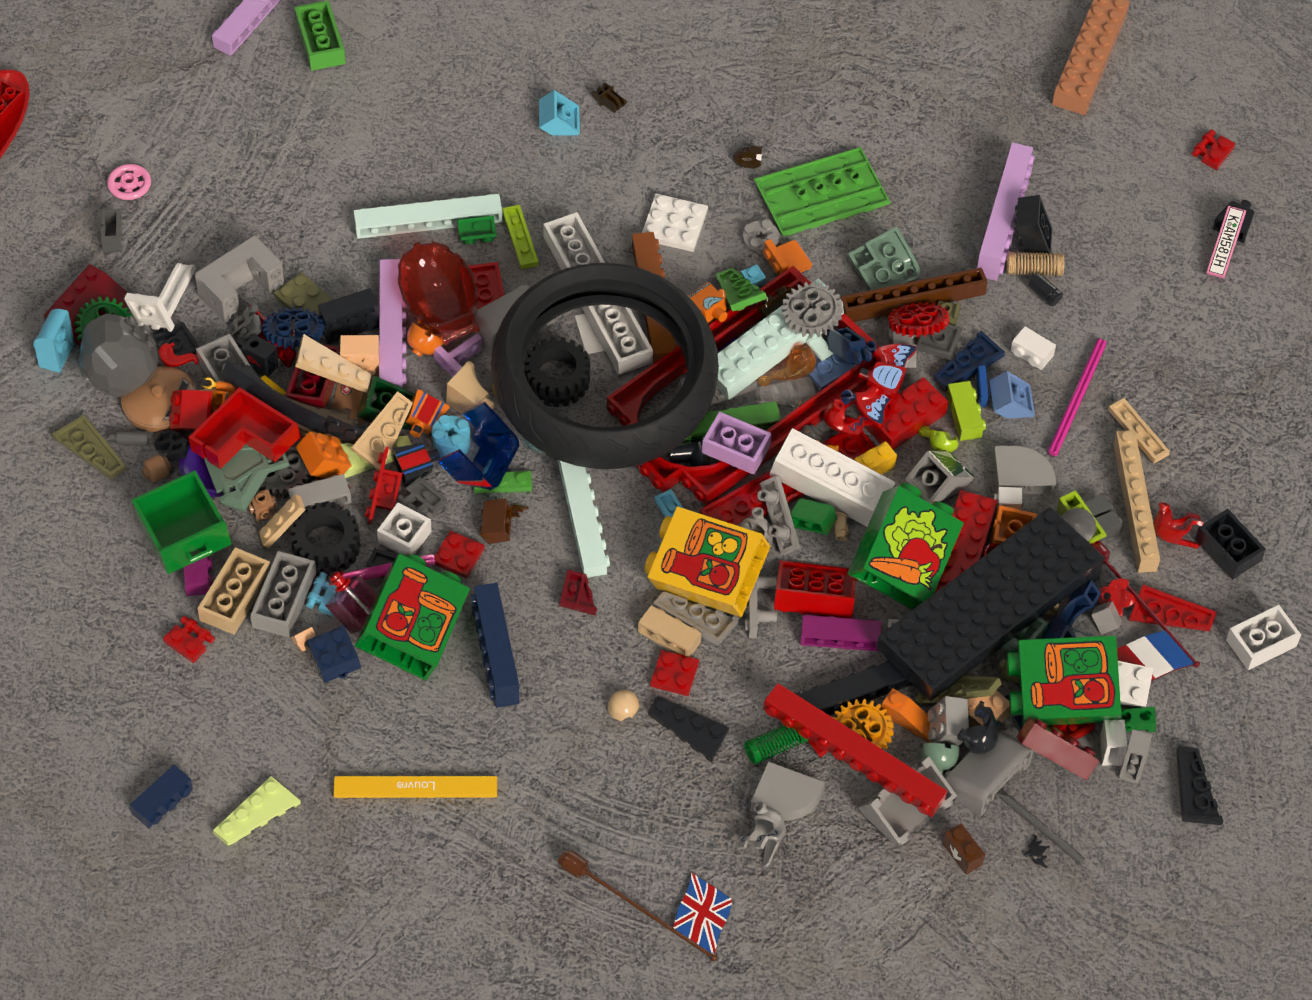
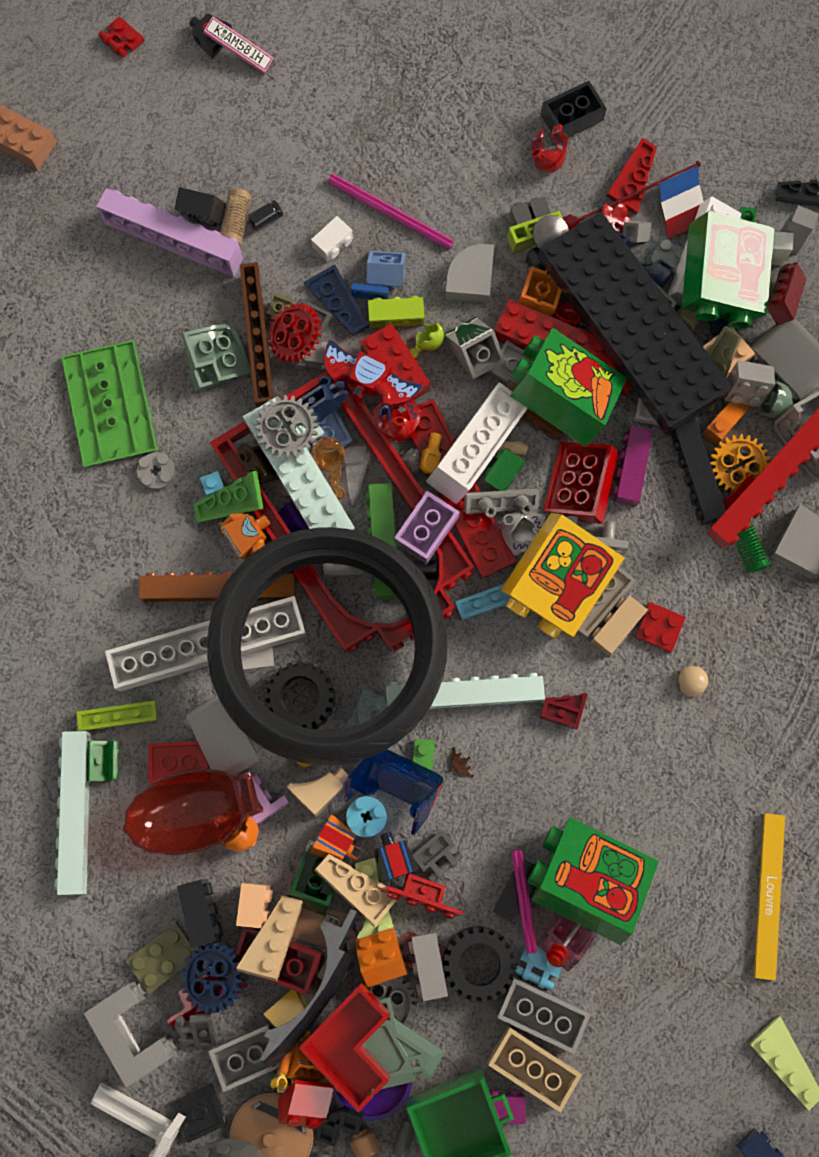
camera: 80 degrees left, 20 degrees up
(168, 357) = (220, 1123): red piece -> none
(184, 643) = (584, 1126): red plate -> none
(259, 354) = (240, 1014): black torso -> none
(262, 505) = (428, 1020): medium nougat brick -> none
(281, 521) = (458, 1010): tan plate -> none
(300, 638) = (591, 997): light nougat tile -> none
(334, 654) = (618, 966): dark blue brick -> none
(391, 325) = (216, 867): lavender brick -> none
(404, 530) = (479, 878): white brick -> none
(458, 554) = (504, 824): red plate -> none
(495, 645) = (624, 797): dark blue brick -> none
(496, 521) = (475, 781): reddish brown brick -> none
(675, 221) = (123, 554): white plate -> none
(698, 731) = (723, 617): black wing -> none
(748, 156) = (53, 467): dark brown rock -> none
(786, 256) = (190, 449): orange bracket -> none
(879, 459) = (447, 403): yellow brick -> none
(984, 737) = (778, 353): black piece -> none
(1009, 497) = (502, 291): white brick -> none
(1136, 501) = (516, 181): tan brick -> none
(1146, 438) = (436, 165): tan plate -> none
(1263, 637) = (673, 104): white brick -> none

